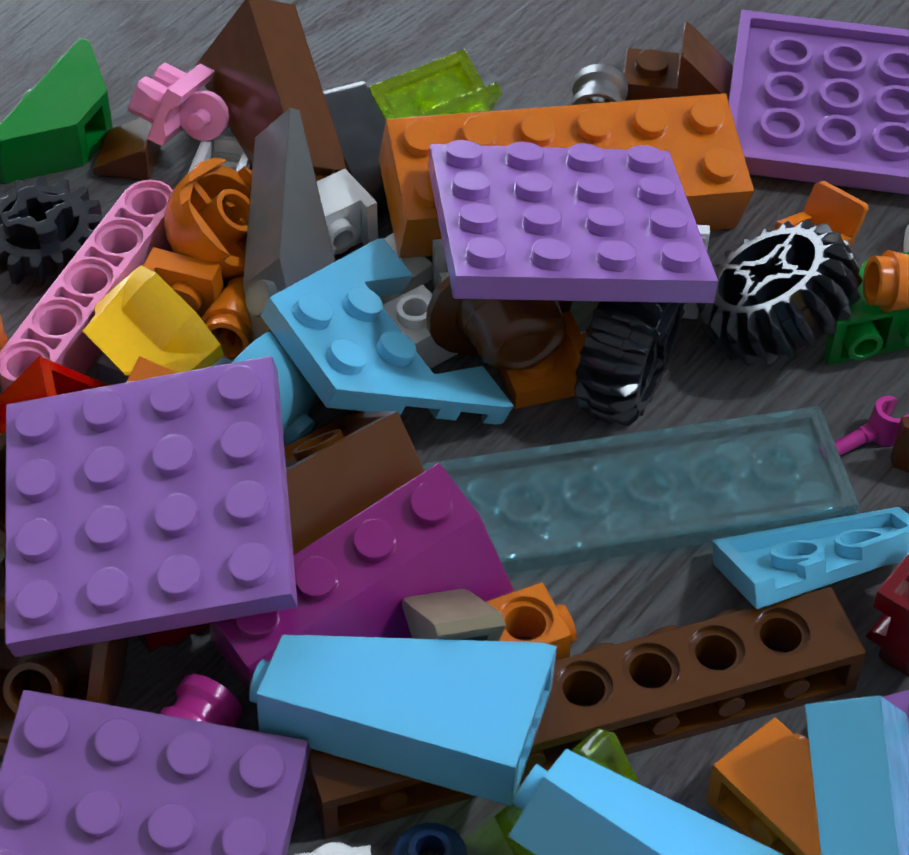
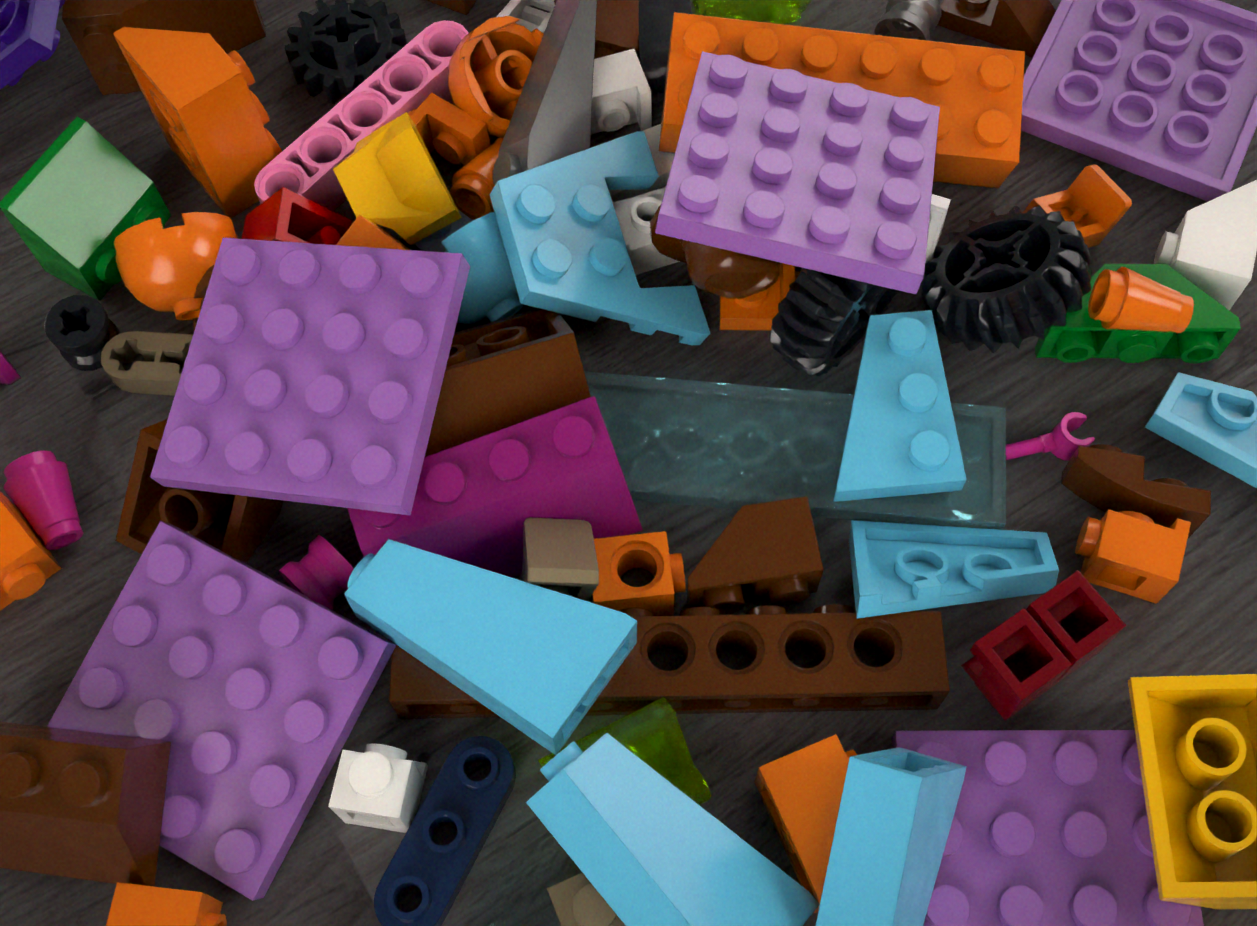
camera: 20 degrees right, 15 degrees up
(640, 587) = (760, 556): none -> reddish brown slope
(726, 432) = (901, 415): none -> medium azure wing

